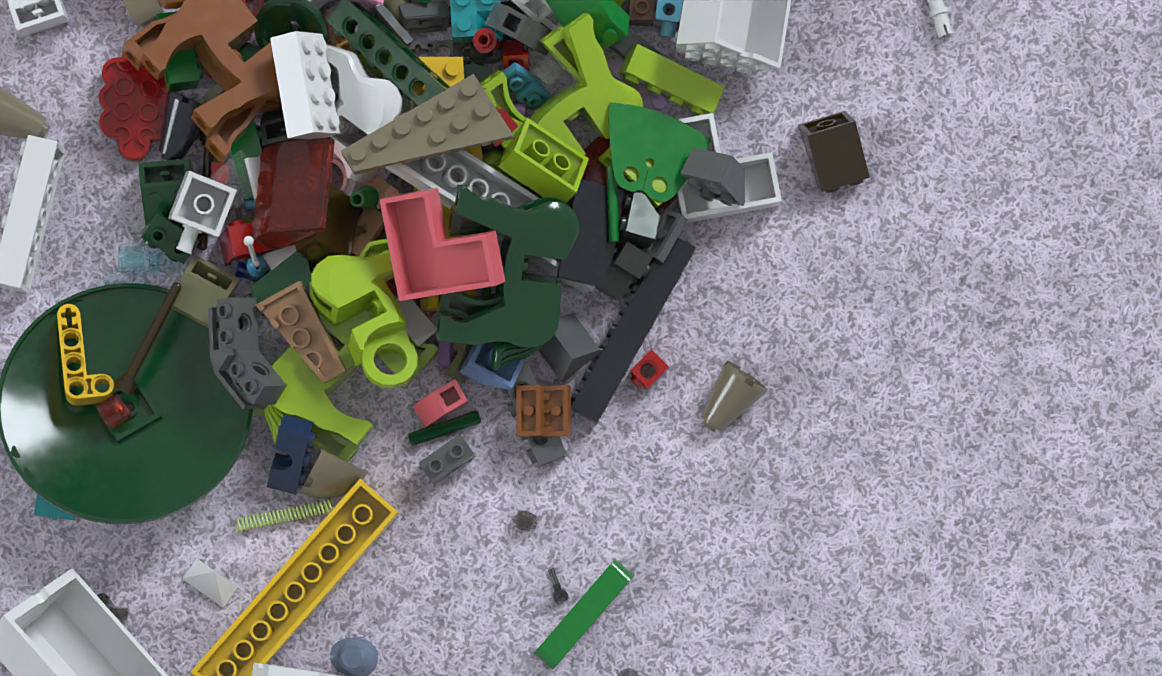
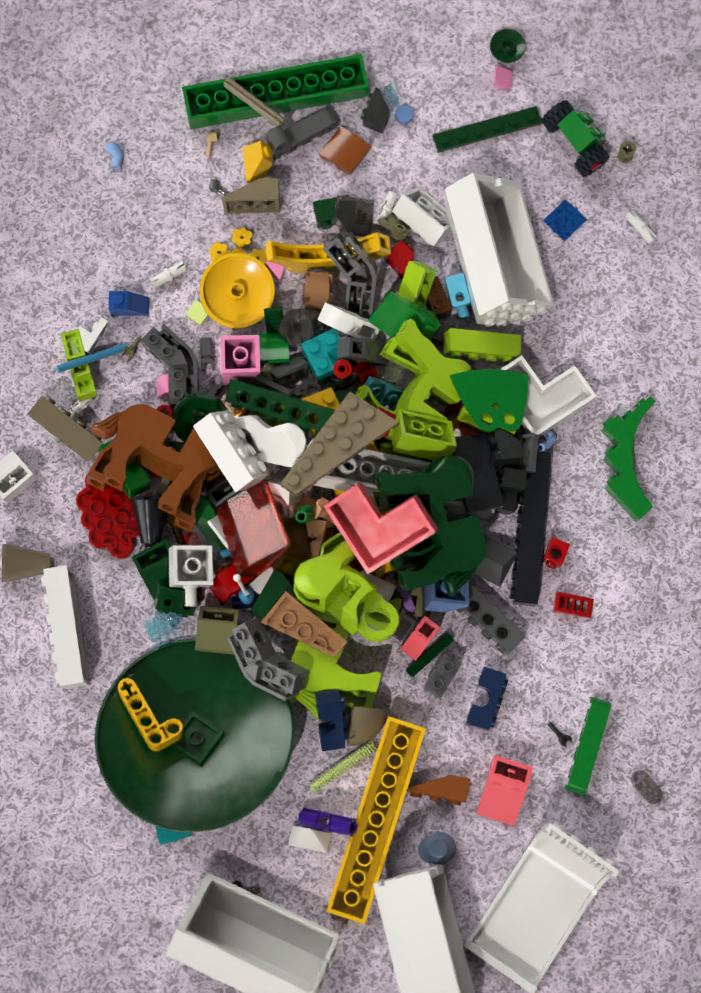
camera: 25 degrees left, 5 degrees down
(113, 411) = (188, 743): clear red tile -> none
(126, 382) = (189, 717): dark brown piece -> none
(237, 571) = (336, 824): none -> dark purple piece
(395, 591) = (448, 787): none -> dark orange slope
(427, 381) = (405, 627): none -> clear smoke brick
(460, 623) = (504, 790): none -> coral slope
(504, 493) = (483, 716): none -> dark blue arch
(525, 520) = (516, 696): clear smoke plate -> none
(543, 411) = (497, 612): dark orange slope -> none
(612, 206) = (482, 445): green bar -> none
(647, 433) = (557, 603): none -> red slope
(696, 235) = (550, 439): none -> light blue arm
(715, 176) = (545, 397): dark grey slope -> none
(731, 397) = (622, 547): dark tan cone -> none
(795, 258) = (624, 486): none -> green arch
(834, 151) = (615, 348): dark brown slope -> none

